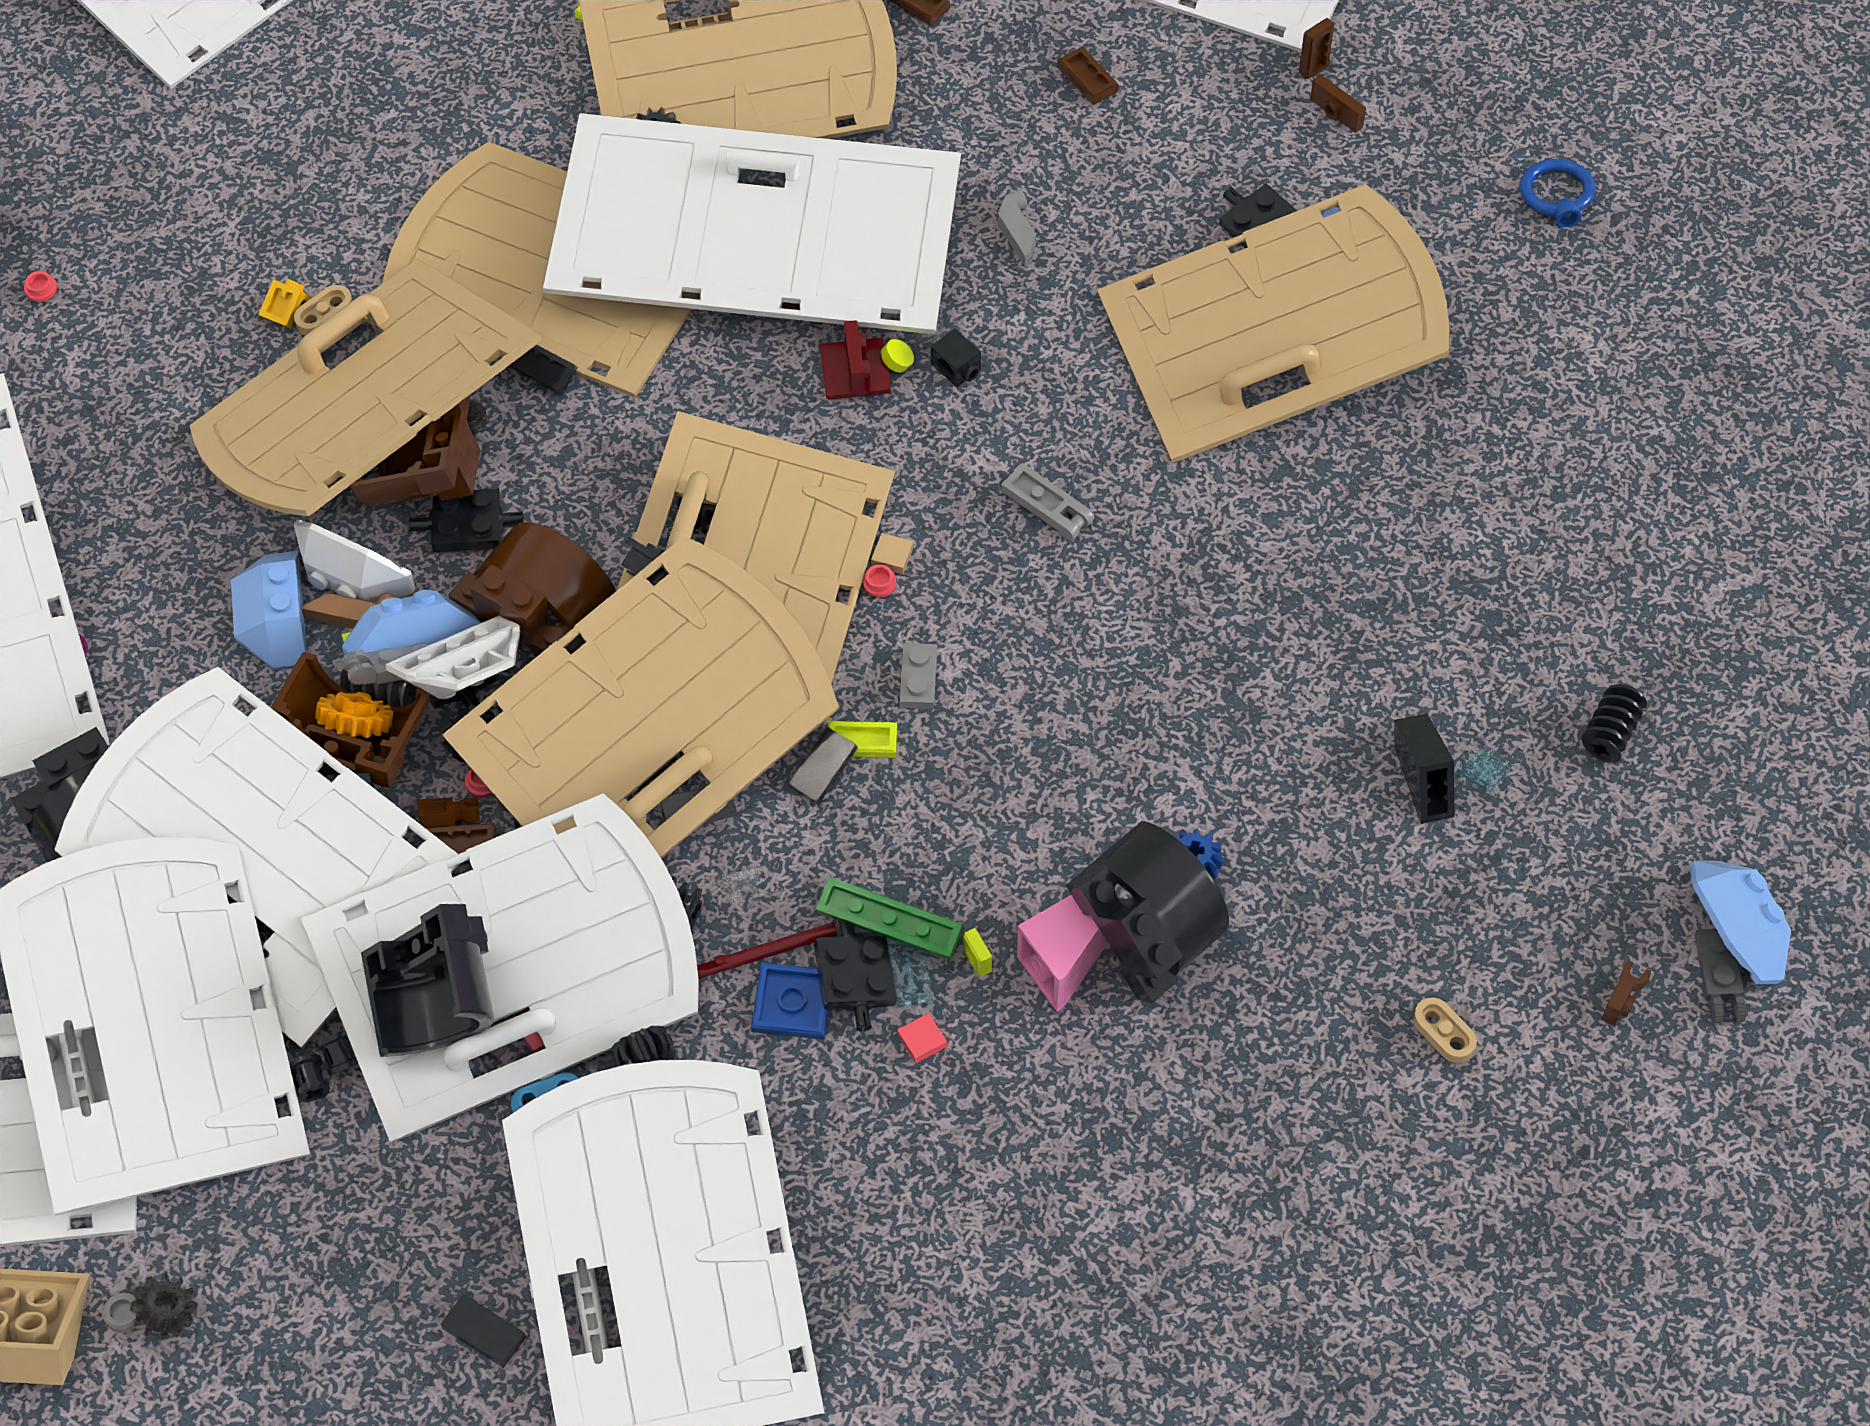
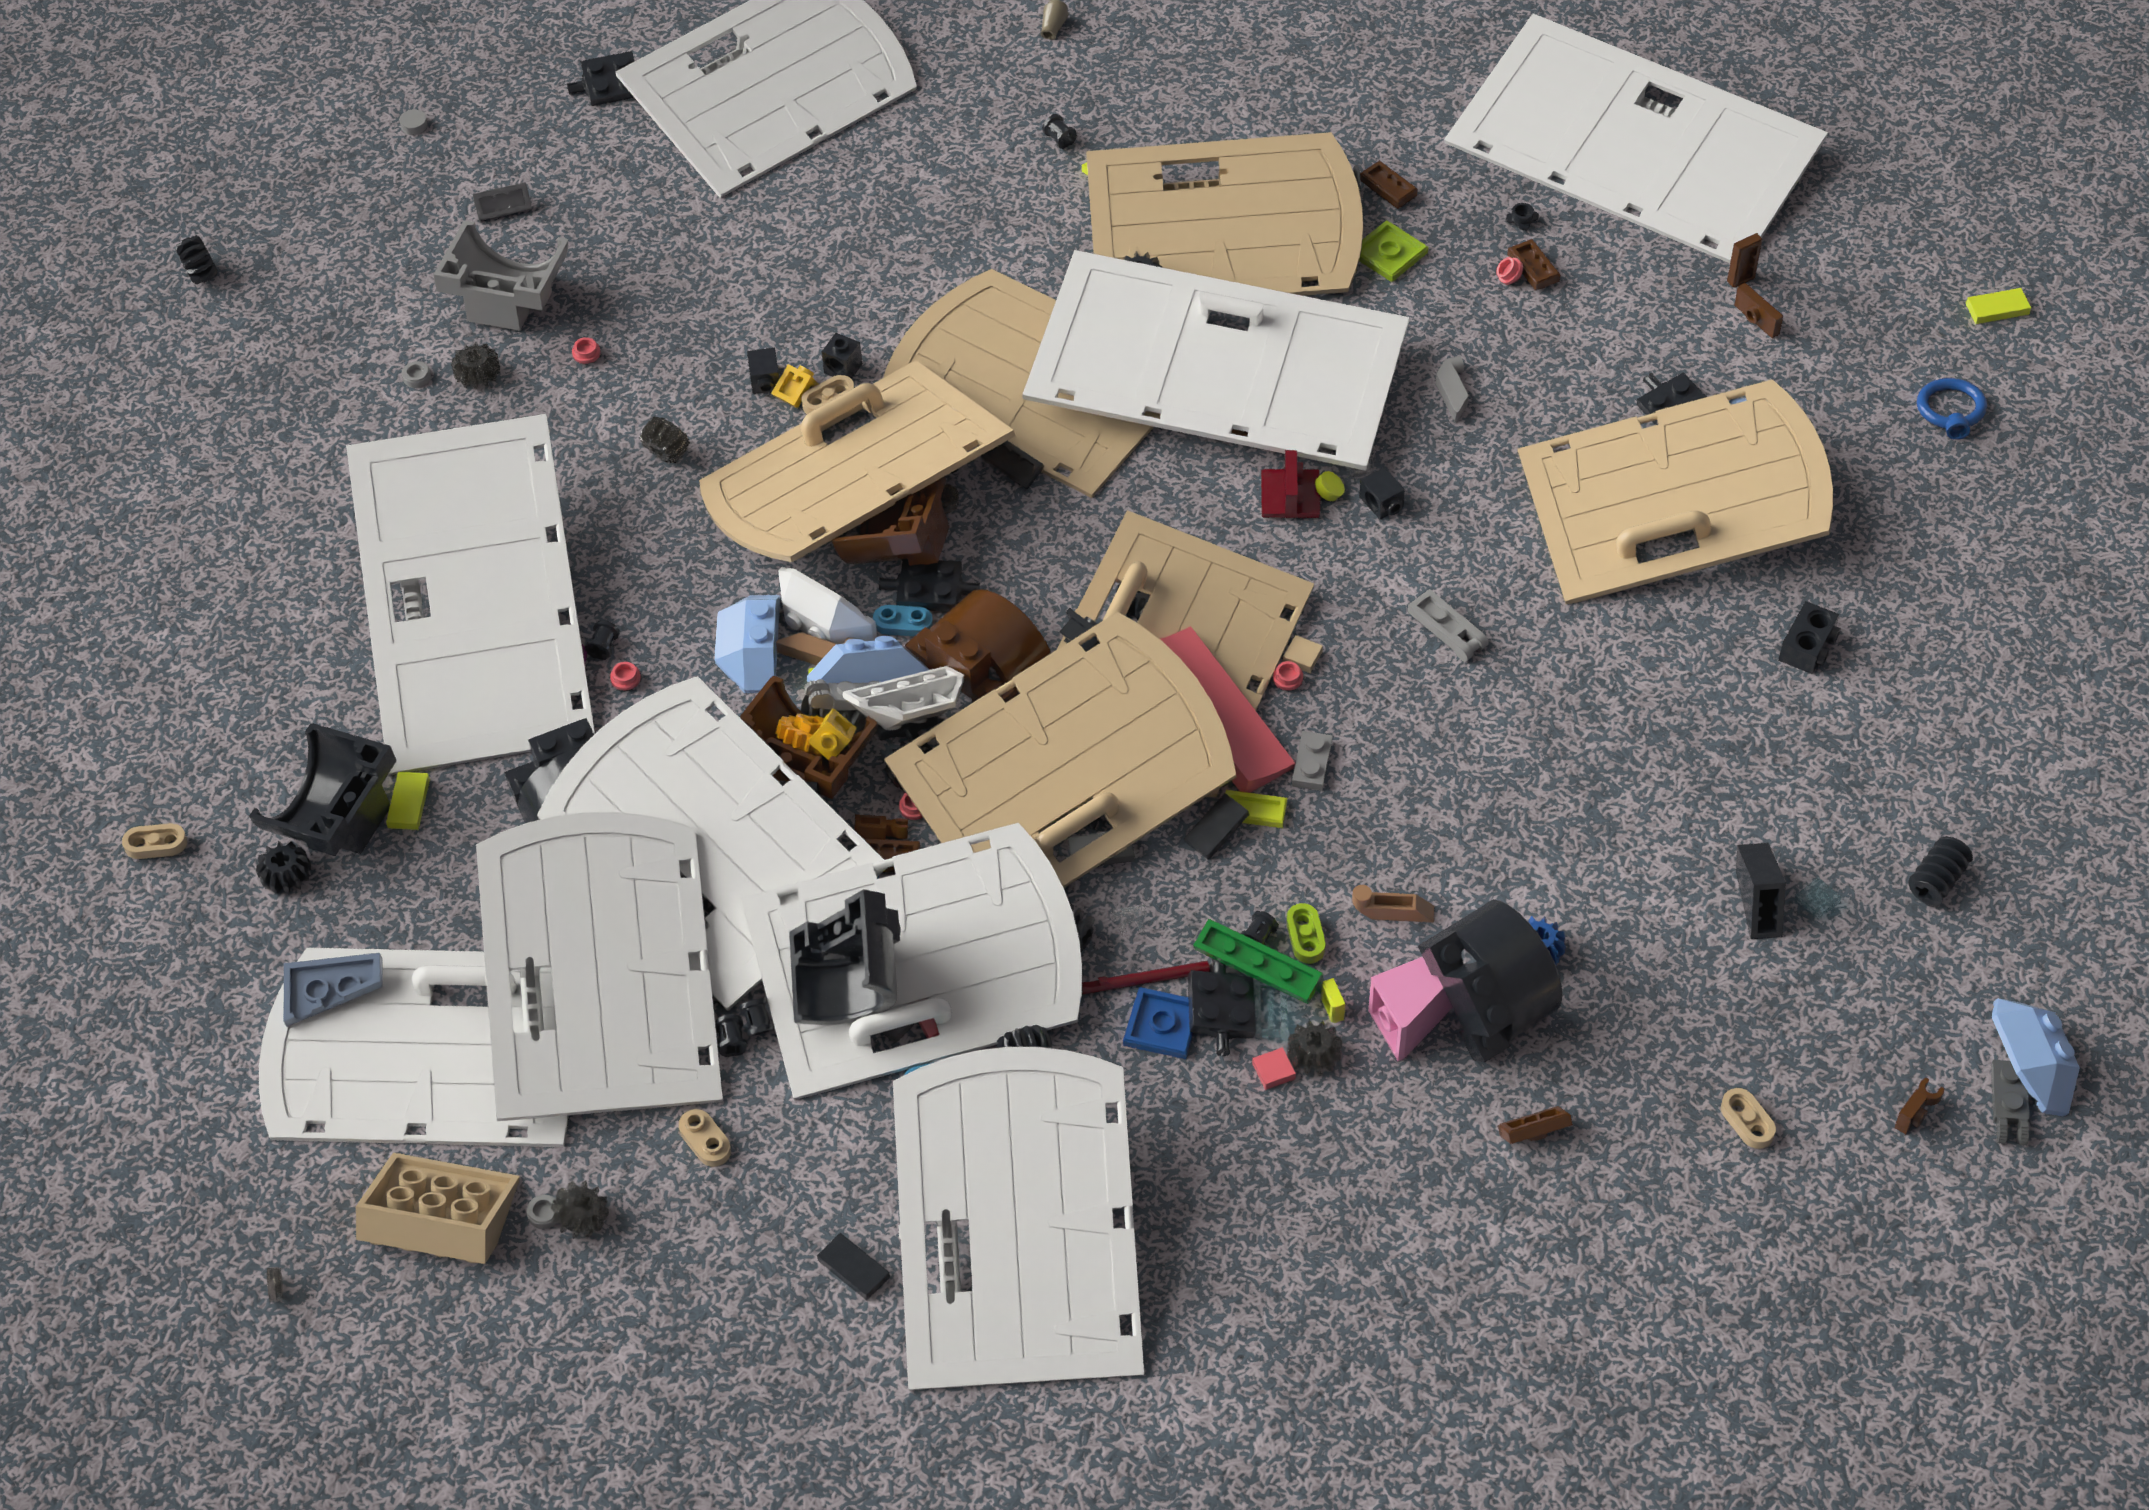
camera: 10 degrees right, 5 degrees down
(102, 627) = (602, 639): none -> black bush
(134, 667) = (625, 676): none -> coral plate
(143, 383) = (664, 440): none -> clear smoke gear
(245, 288) = (763, 370): none -> black brick
(293, 1200) = (703, 1136): none -> tan plate
(333, 263) = (841, 356): none -> black brick
(381, 714) = (832, 735): none -> yellow bracket
(441, 565) = (902, 620): none -> dark azure plate
(853, 668) = (1254, 748): none -> coral arch
(883, 867) = (1265, 929): none -> black bush
(929, 75) = (1391, 251): none -> lime tile
(939, 879) = (1305, 935): none -> lime plate
(967, 1021) = (1325, 1048): none -> clear smoke gear
(1028, 834) = (1392, 905): none -> medium nougat piece
(1062, 85) = (1509, 270): none -> coral plate
(1068, 20) = (1522, 215): none -> black plate
(1216, 1068) = (1535, 1125): none -> reddish brown plate
(1437, 472) = (1809, 637): none -> black brick
(1592, 71) = (1998, 305): none -> neon yellow tile

